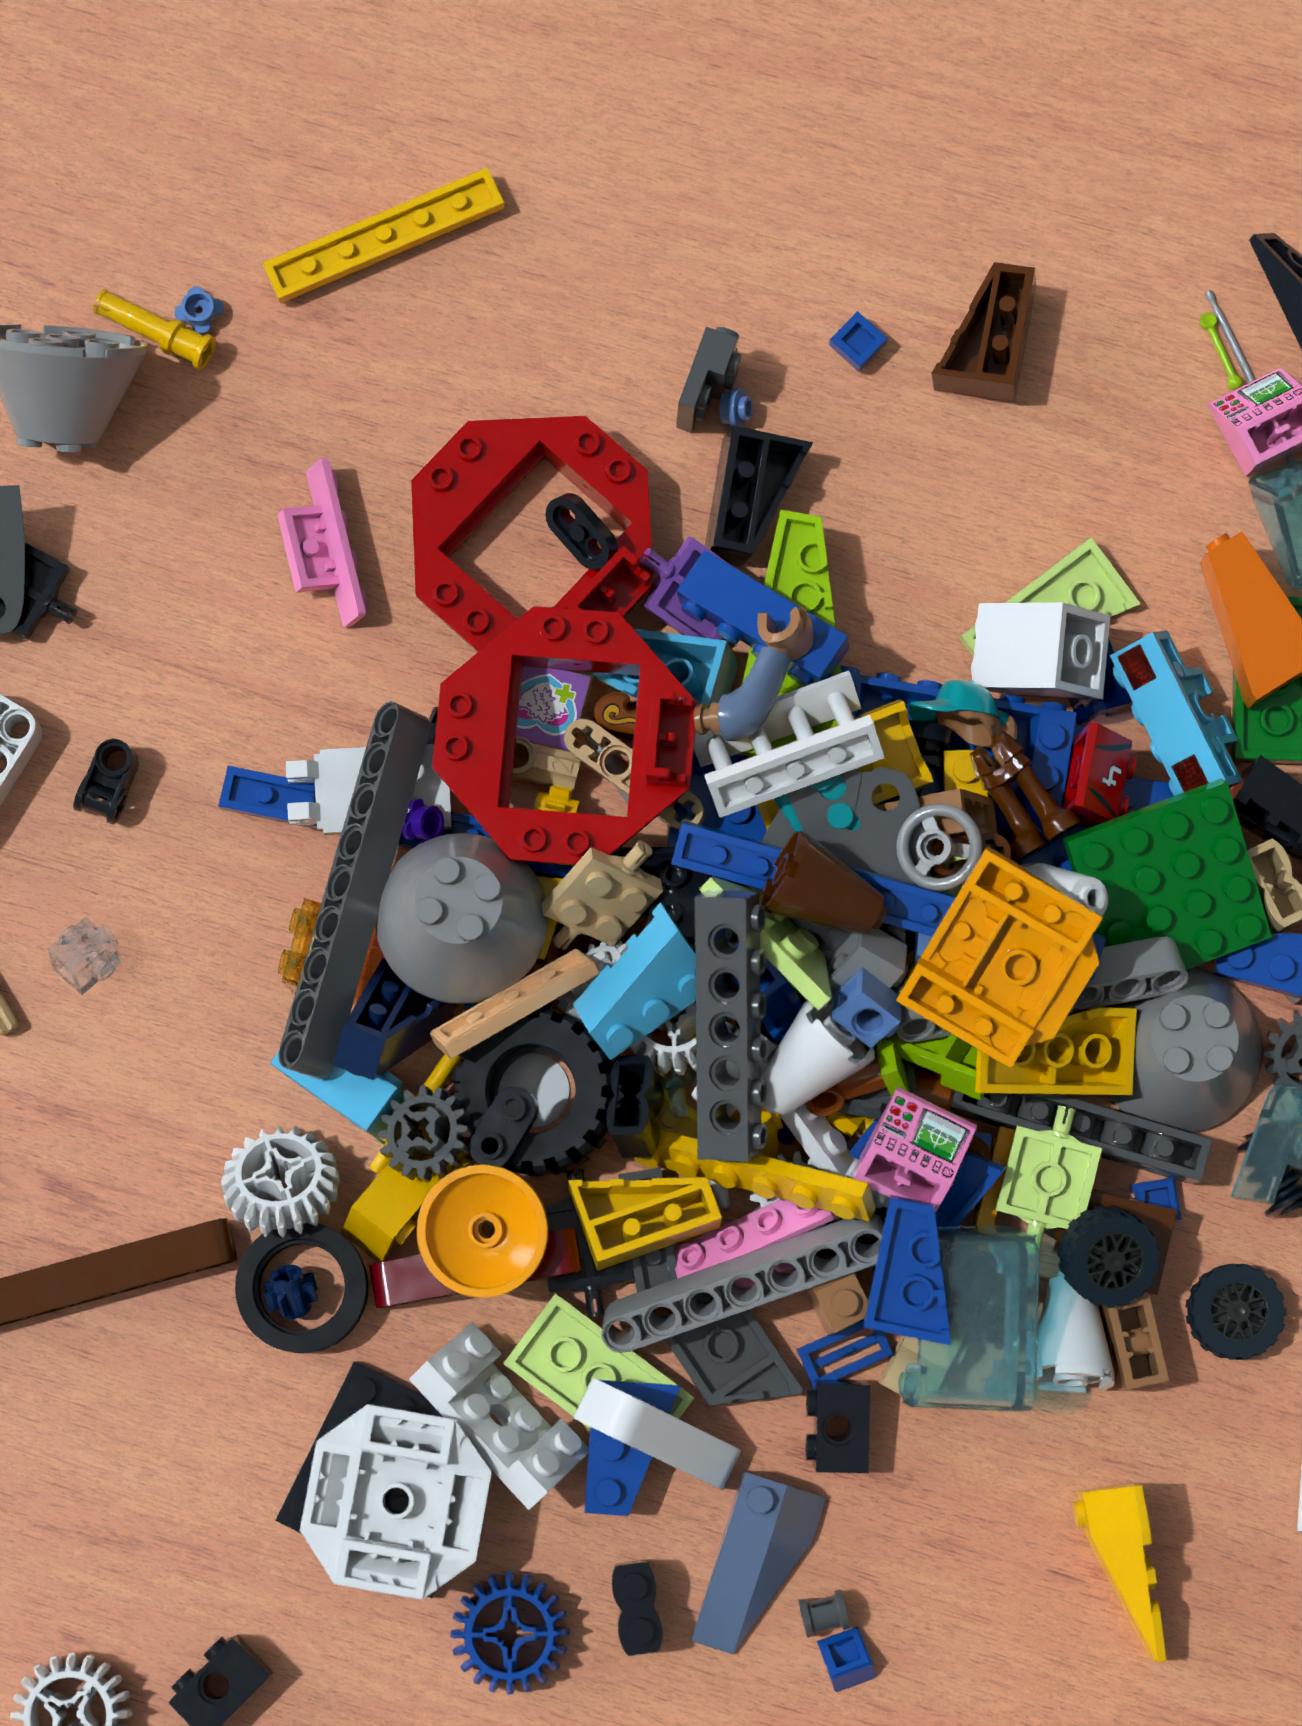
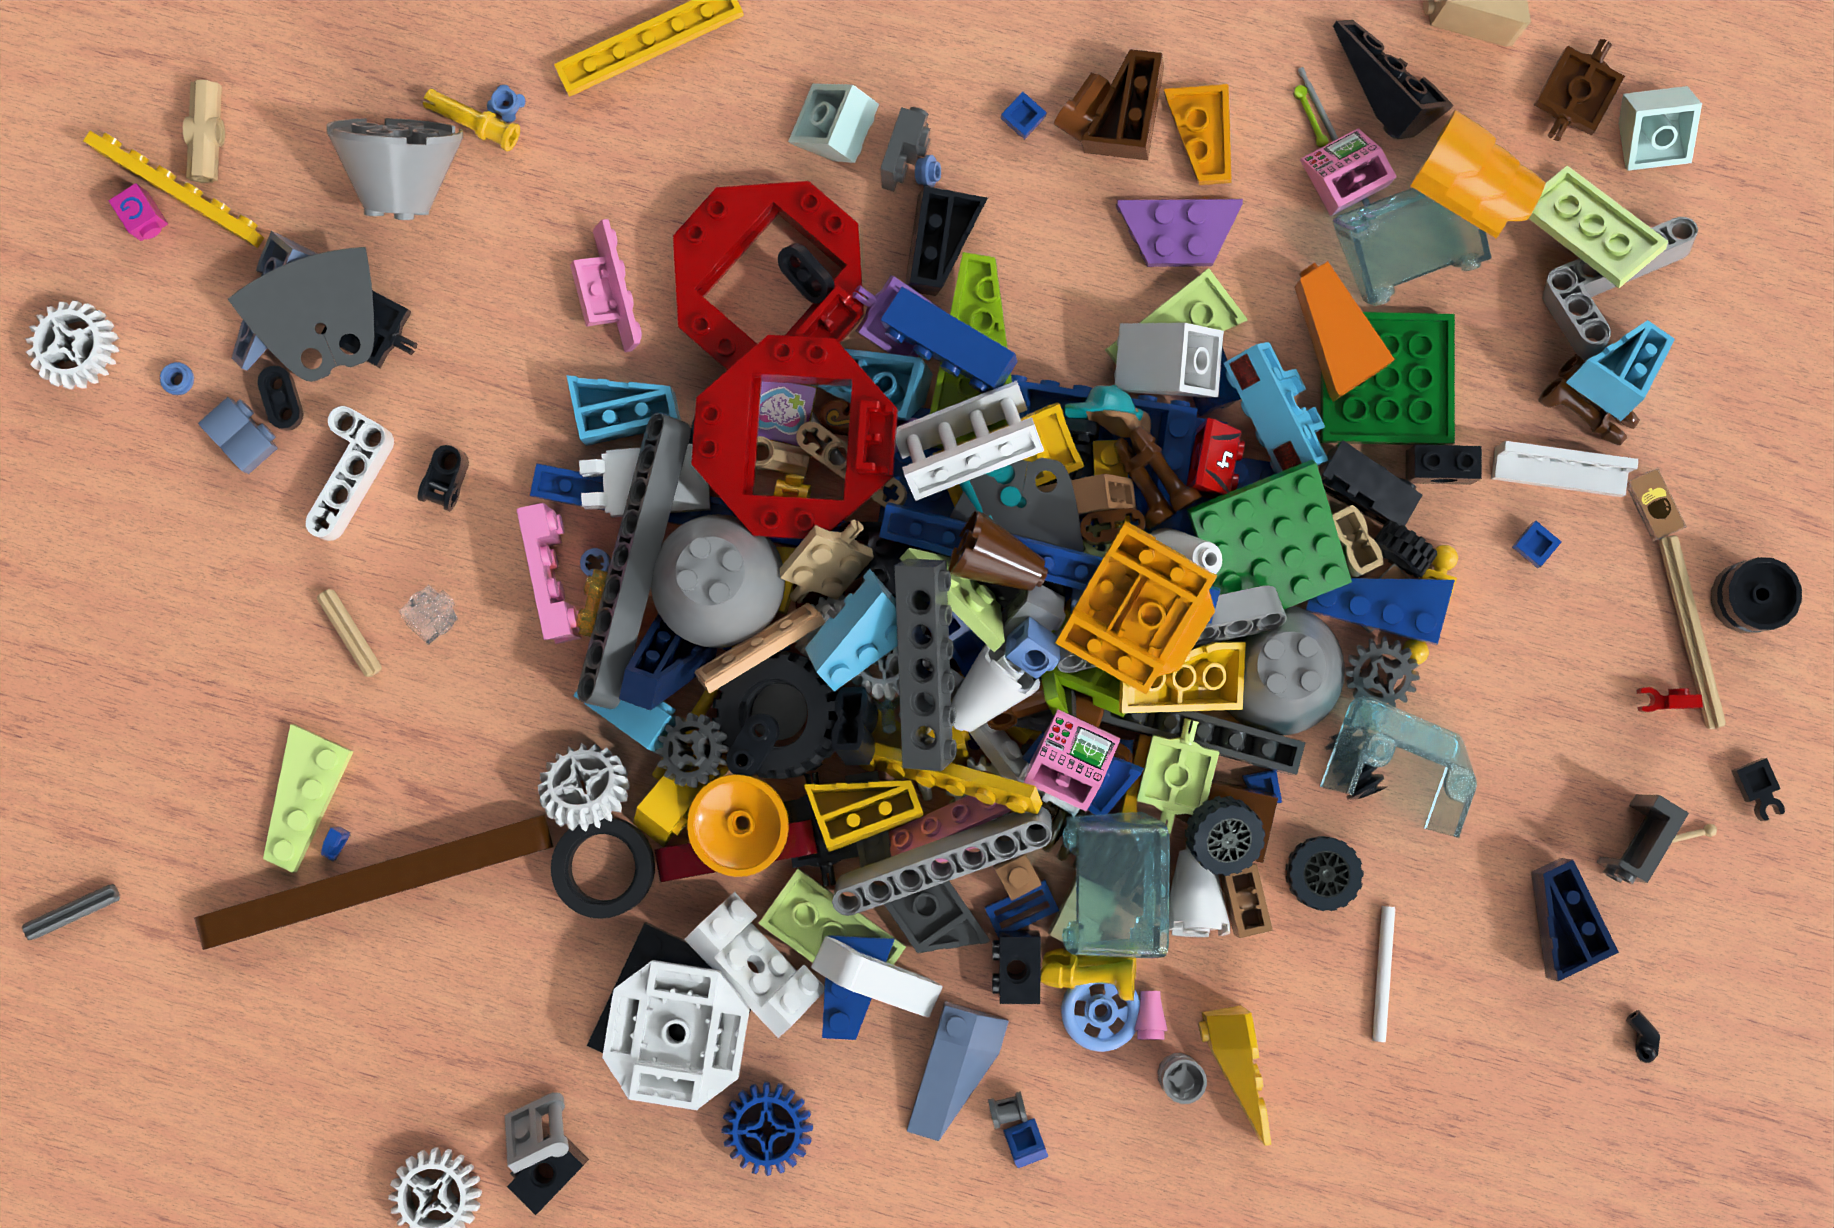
camera: 10 degrees right, 5 degrees up
(194, 1636) = (525, 1132): none -> light grey plate
(233, 852) = (540, 530): none -> bright pink piece
(290, 1291) = (594, 871): dark blue gear -> none
(303, 882) = (598, 553): none -> medium blue bush
(334, 698) = (617, 409): none -> medium azure wedge
(423, 821) = (686, 506): dark purple plate -> none
(617, 343) = (834, 121): none -> light aqua slope
(638, 1620) = (866, 1117): black brick -> none
(748, 707) = (937, 411): piece -> none
(908, 1275) = (1068, 858): blue wing -> none
(909, 1429) = (1069, 970): none -> yellow piece
(913, 1503) = (1106, 1038): none -> light blue plate
(926, 816) = (1079, 530): light grey piece -> none
(929, 340) = (1080, 111): none -> dark orange piece
(1010, 1495) = (1151, 1018): none -> bright pink cone
(1051, 1574) = (1182, 1078): none -> light grey wheel
(1054, 488) = (1179, 230): none -> medium lavender wing
(1087, 364) = (1204, 127): none -> light orange wing

